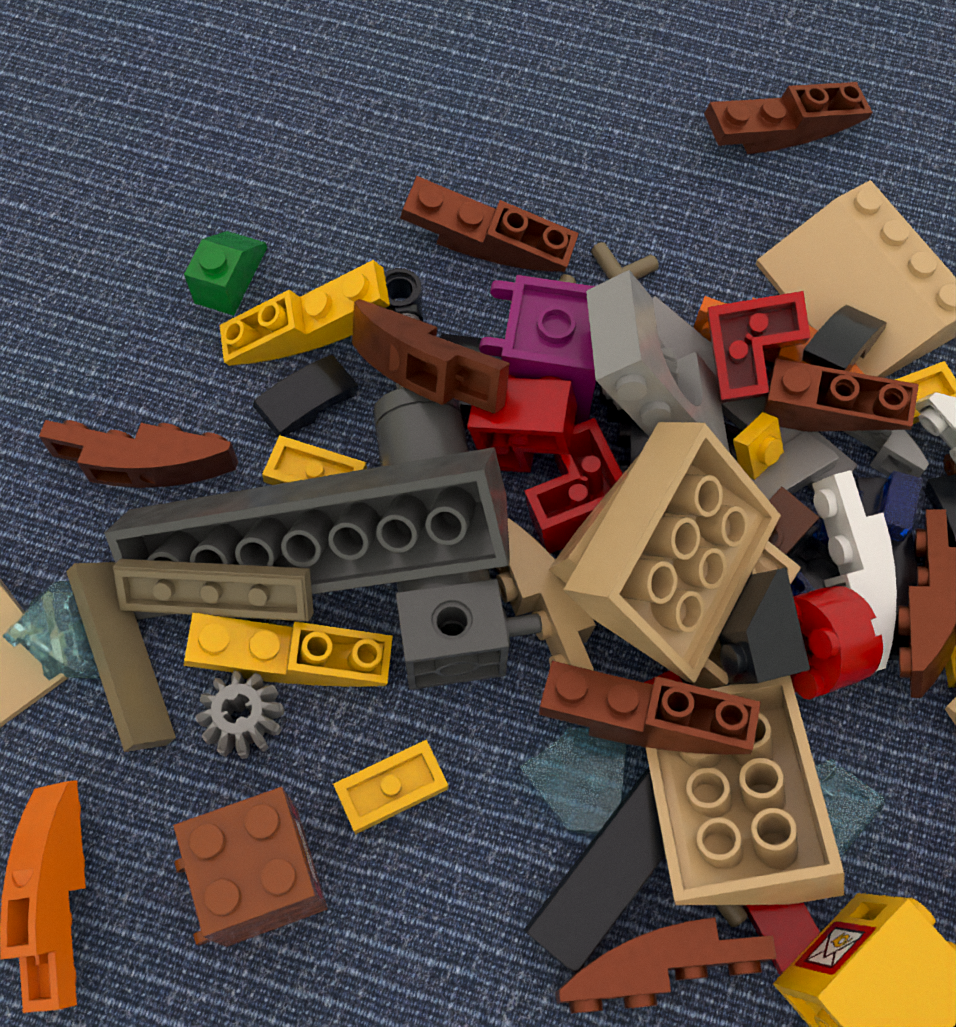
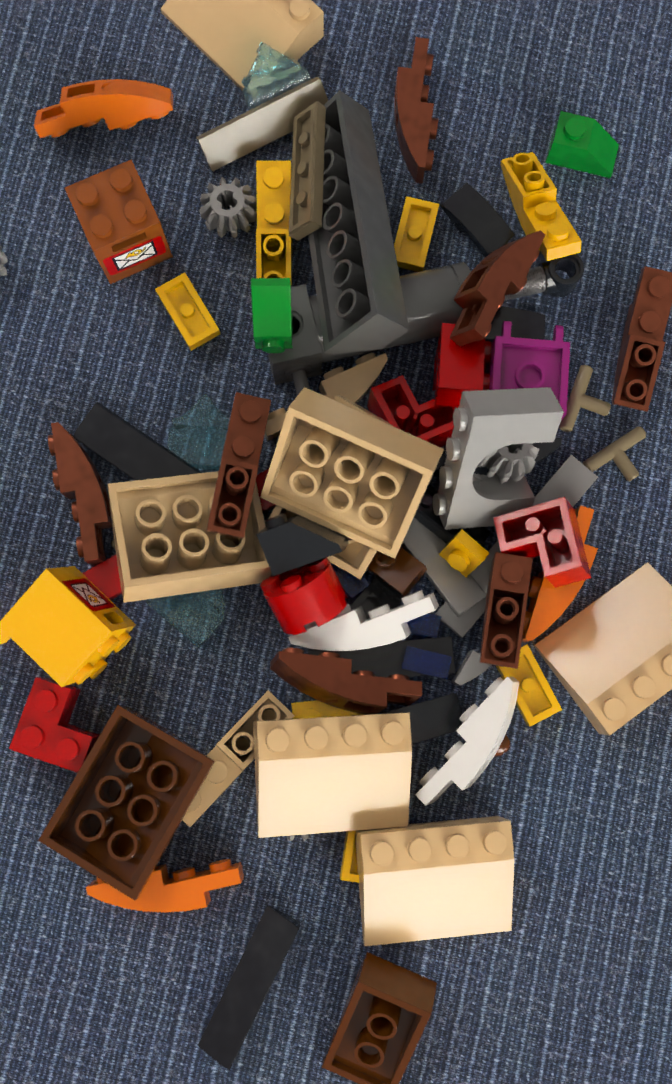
camera: 85 degrees right, 15 degrees up
(455, 625) = (272, 314): none -> green slope
(843, 339) = (566, 620): black slope -> none

